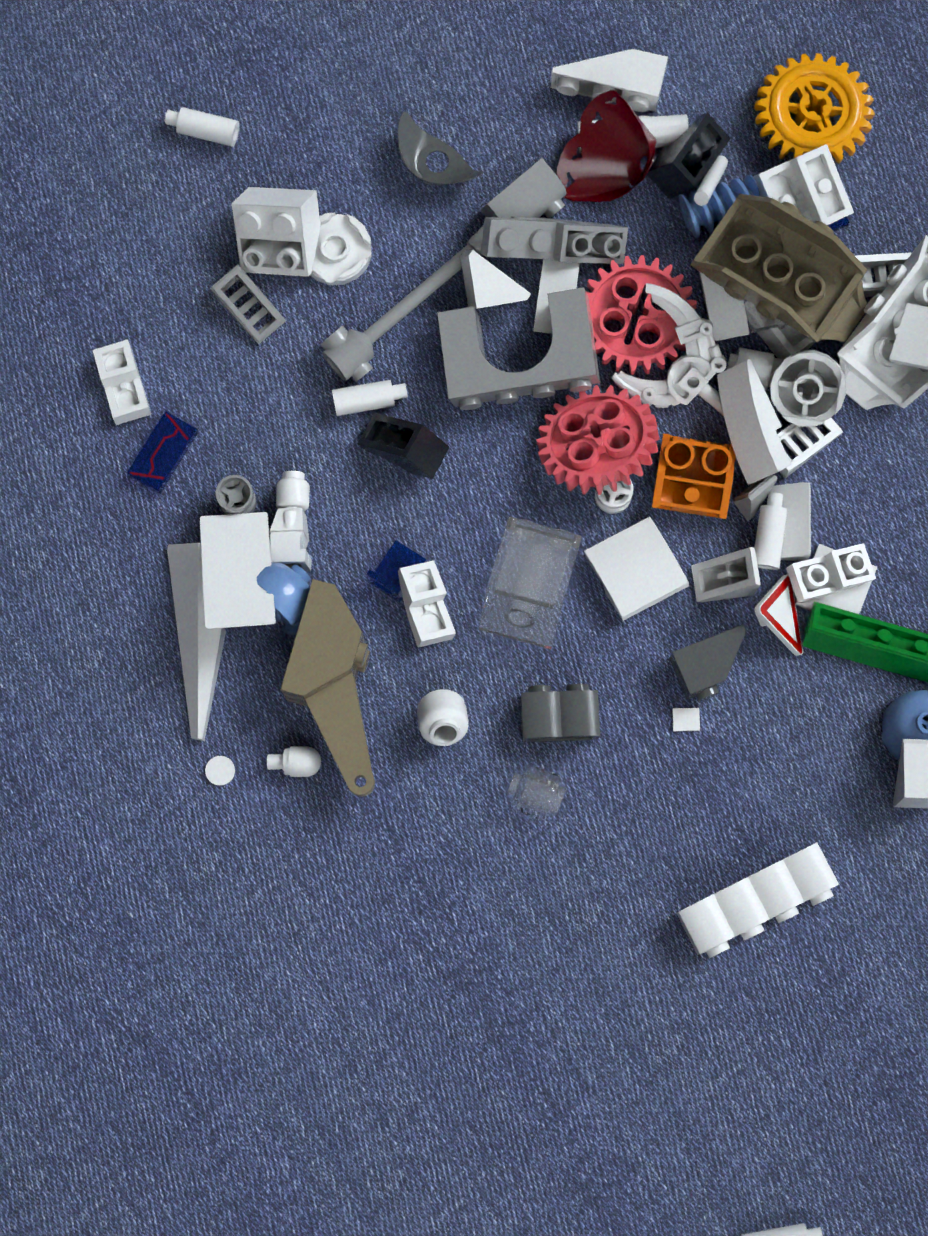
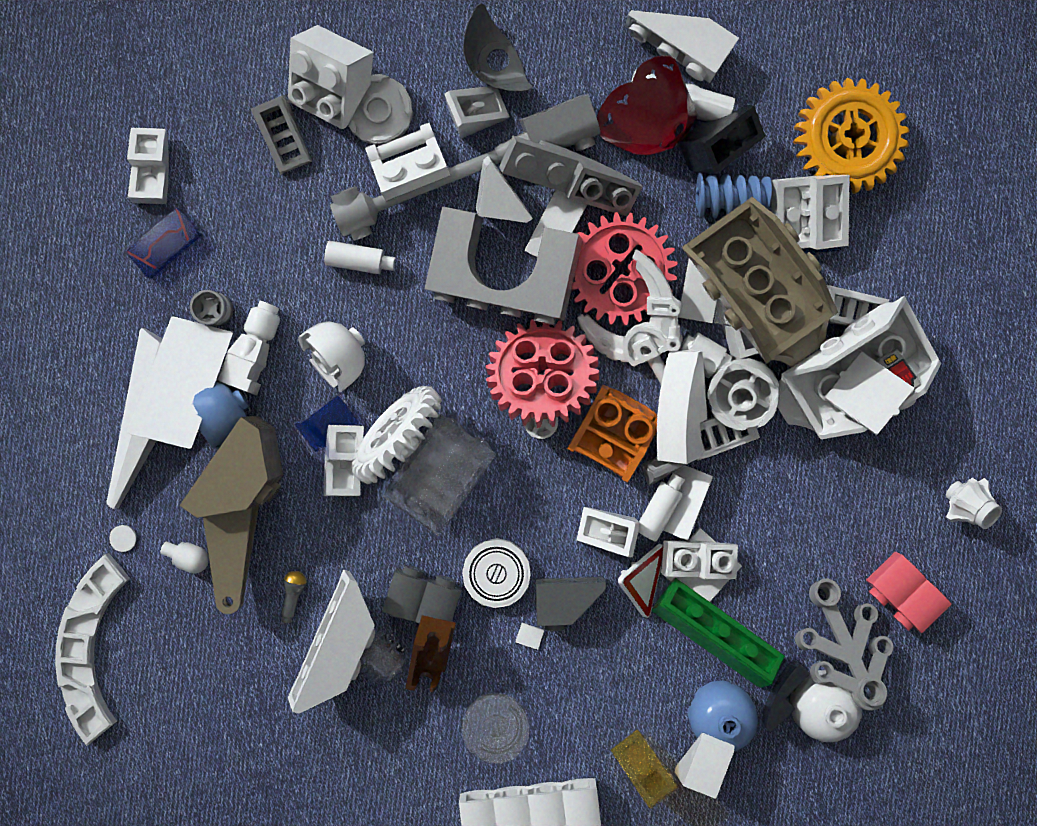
camera: 15 degrees right, 10 degrees up
(210, 904) = (76, 648): none -> white tile
(378, 496) = (335, 352): none -> white cylinder
(388, 293) = (411, 169): none -> white plate
(404, 444) = (372, 314): black arch -> none
(419, 752) = (294, 584): none -> dark grey piece
(432, 214) = (475, 109): none -> white slope
(442, 717) = (320, 567): white head -> none
(473, 544) = (395, 433): none -> white gear
(490, 782) = (335, 648): none -> white wedge
(589, 761) = (430, 651): none -> reddish brown hinge
(626, 664) = (496, 573): none -> white tile
(636, 568) = (535, 494): white slope -> none
(687, 828) = (495, 728): none -> clear tile
(710, 181) = (730, 173): white bar -> none
(859, 805) = (645, 769): none -> clear yellow slope

